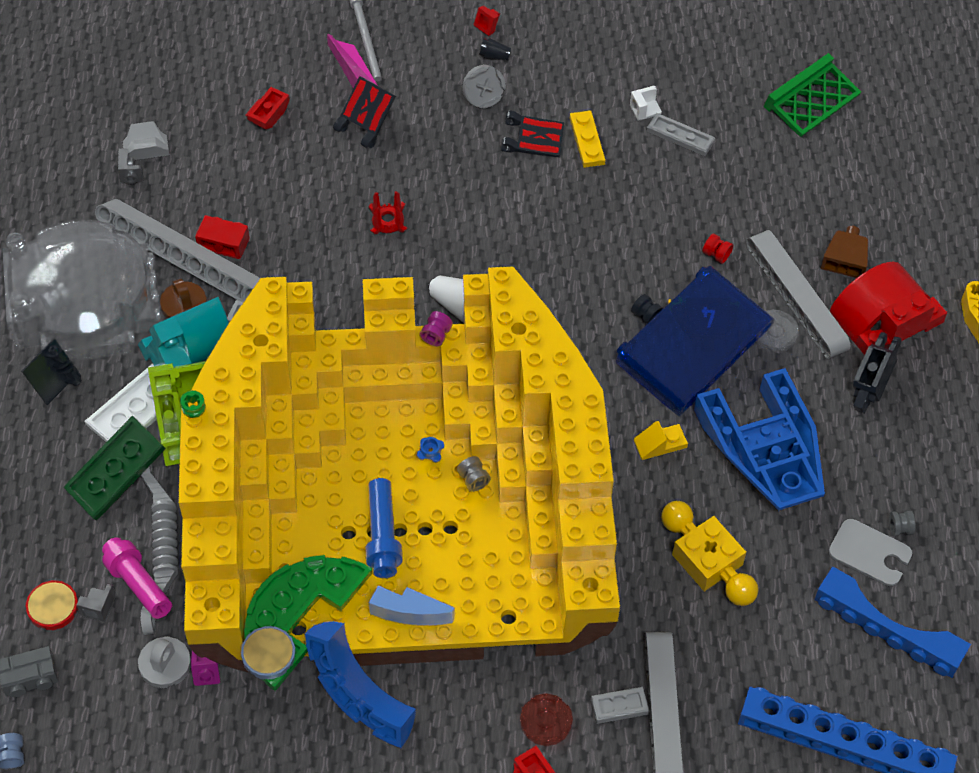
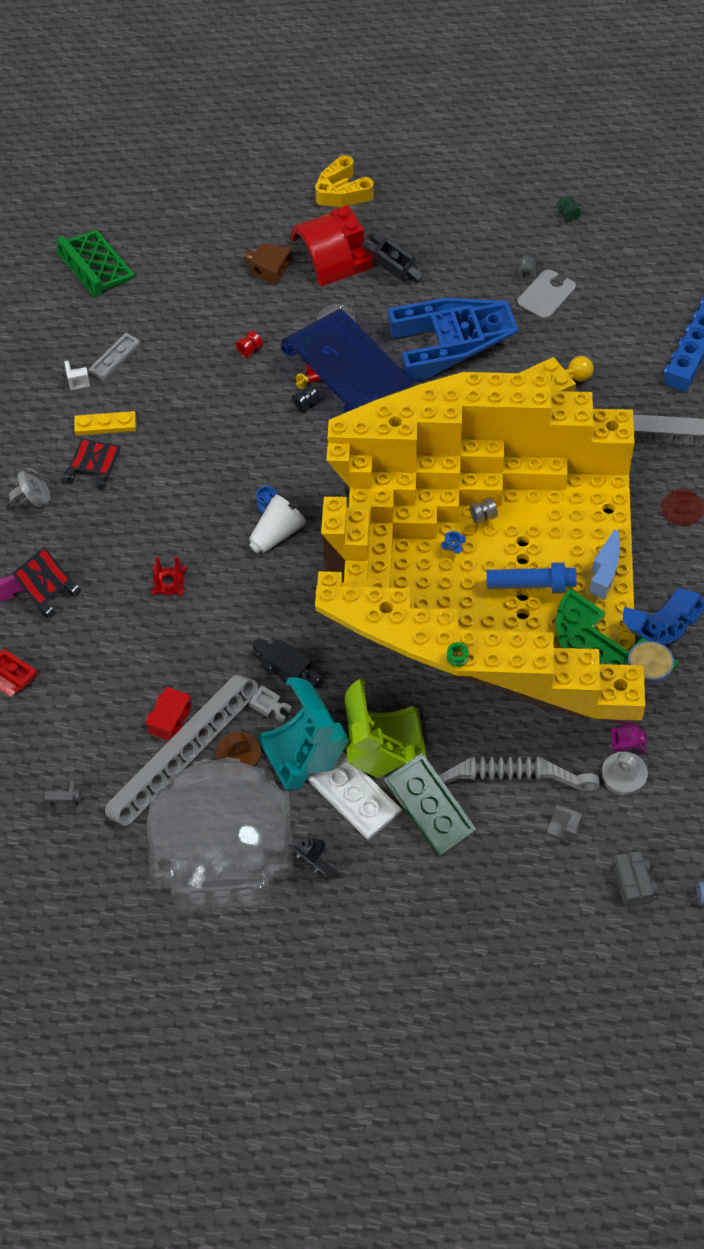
camera: 80 degrees left, 0 degrees up
(52, 605) = (563, 864): pearl gold tile -> none
(124, 562) = (527, 798): dark pink piece -> none
(146, 141) = (30, 784): light grey slope -> none
(435, 330) = (362, 499): magenta wheel -> none
(619, 705) = (673, 458): light grey plate -> none
(799, 293) = (302, 299): light grey beam -> none
(938, 649) = (588, 310): blue arch -> none

